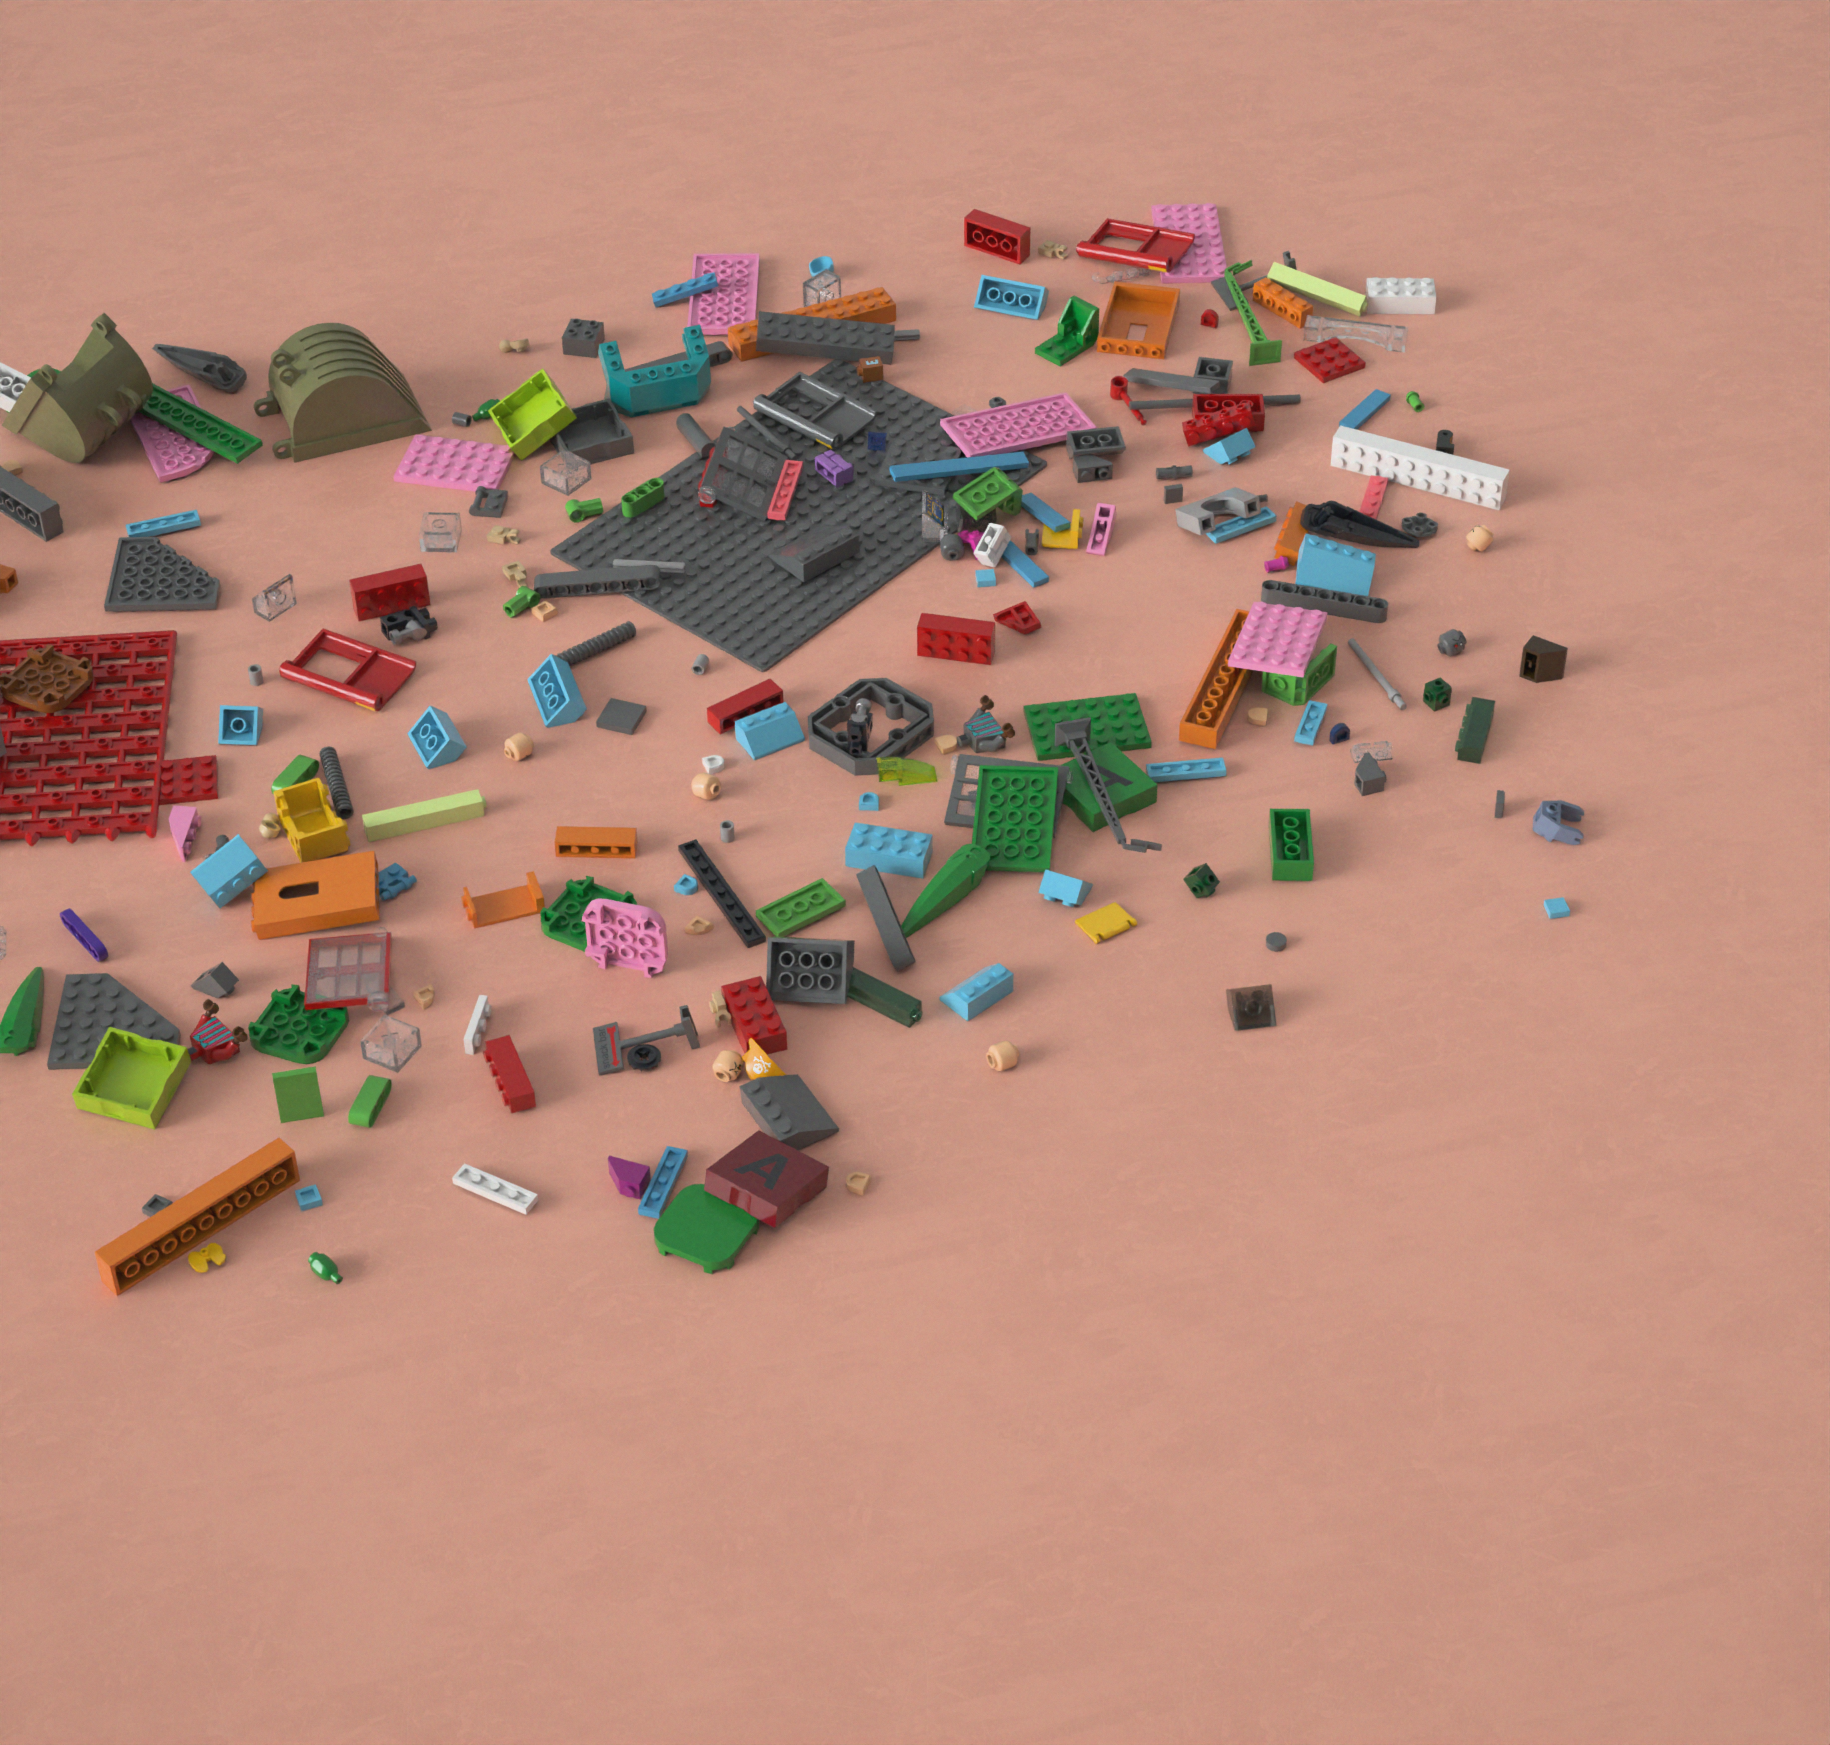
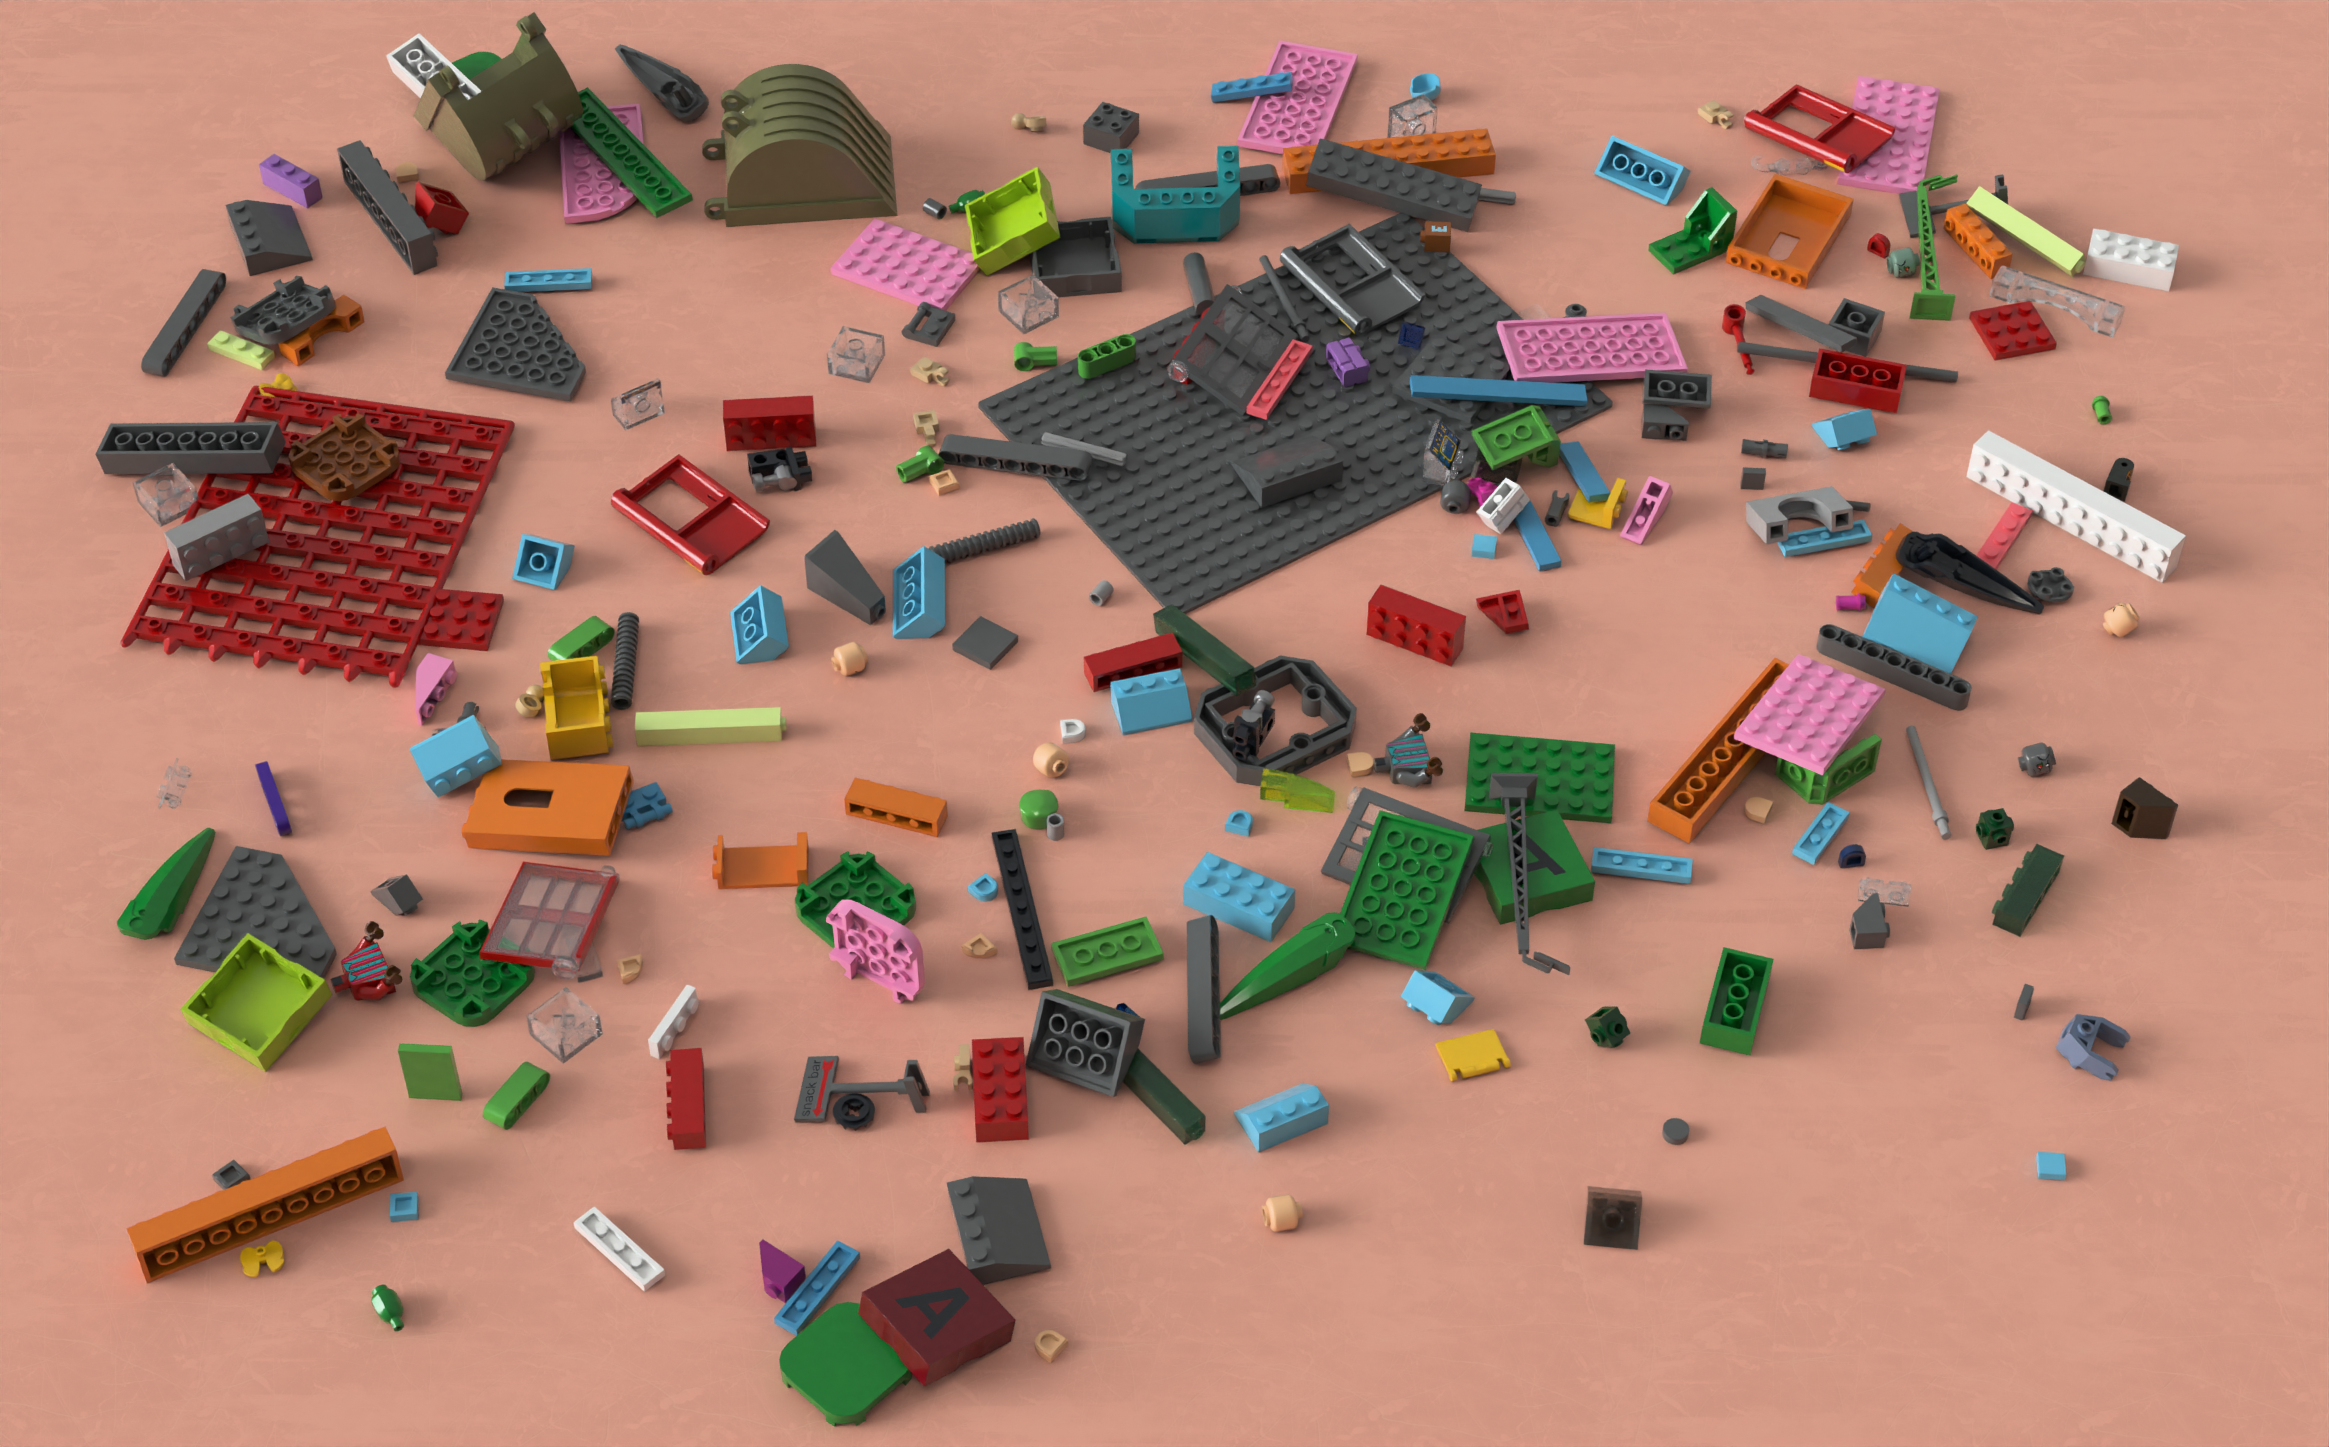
camera: 15 degrees right, 5 degrees up
(54, 486) = (439, 208): none -> red slope
(255, 675) = (583, 498): light grey hinge -> none
(492, 692) = (842, 579): none -> dark grey slope
(708, 821) = (1036, 807): none -> bright green hair
(728, 1065) = (946, 1147): light nougat head -> none
(758, 1063) = (982, 1157): light orange hat -> none
(801, 685) = (1206, 650): none -> clear green brick
(997, 236) = (1650, 85): red brick -> none
(1218, 423) = (1838, 395): red brick -> none
(1232, 327) = (1902, 262): none -> sand green head
(1365, 409) = (2034, 409): dark azure tile -> none

